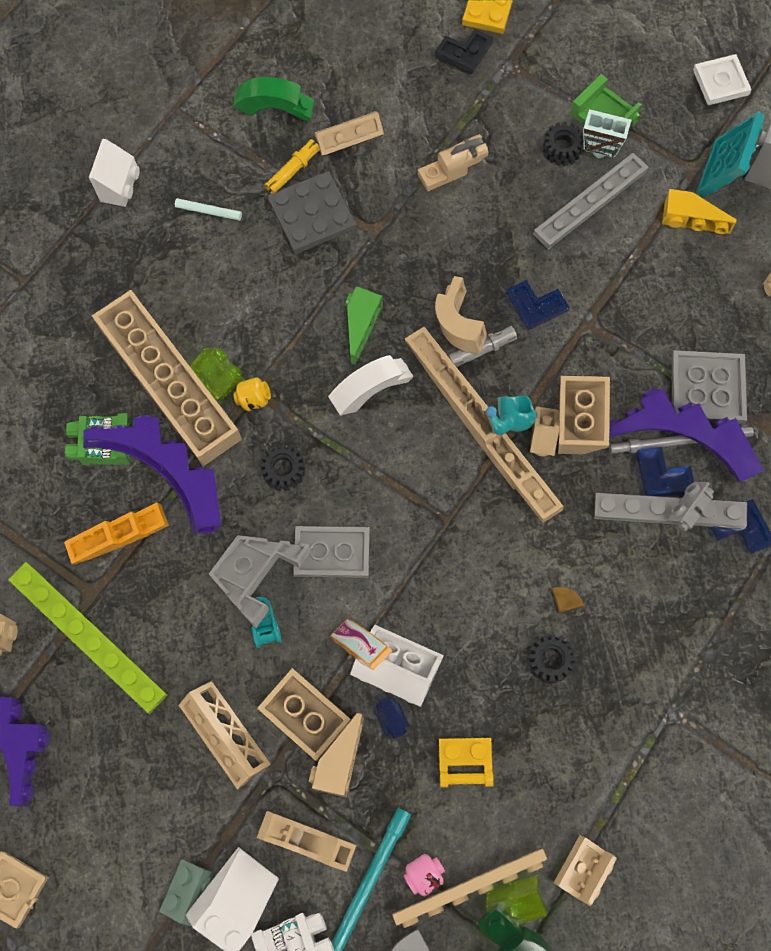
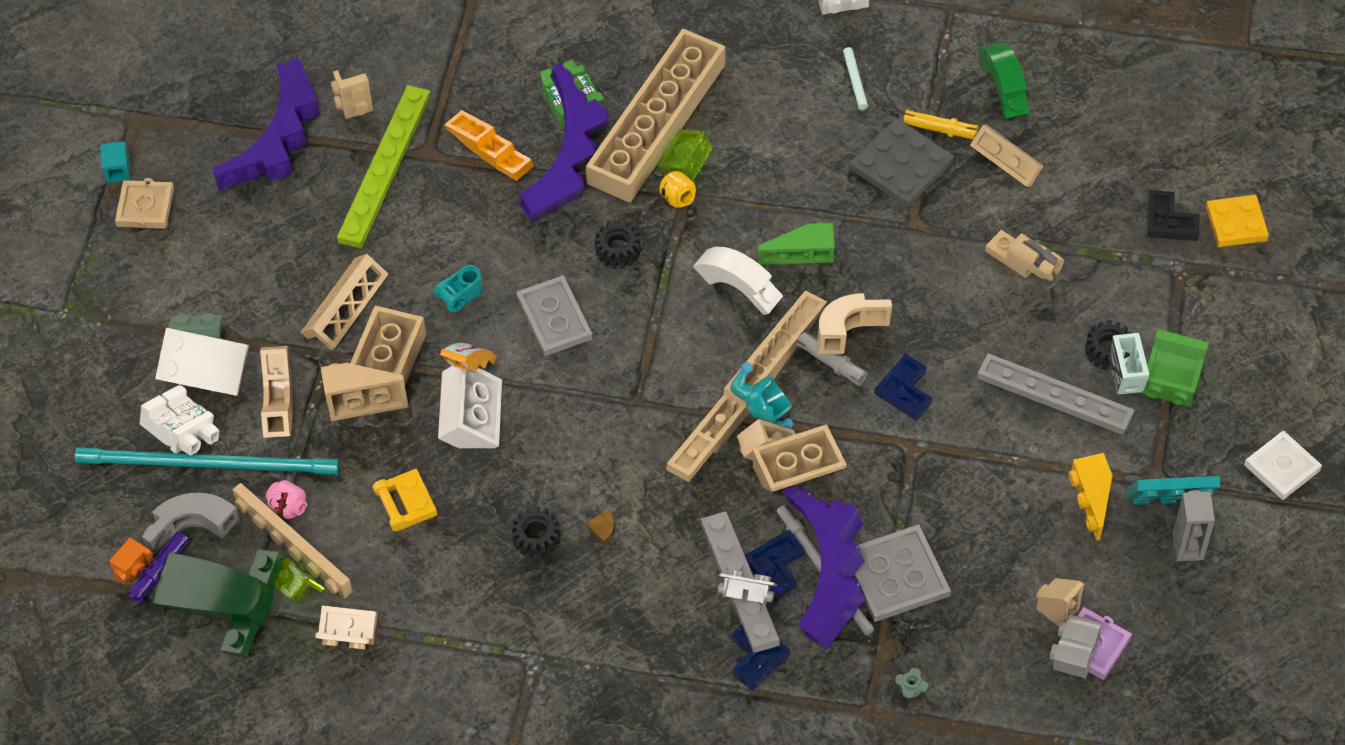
camera: 65 degrees right, 15 degrees down
(246, 565) = (504, 251): light grey wing -> none
(392, 718) = (417, 423): clear blue brick -> none

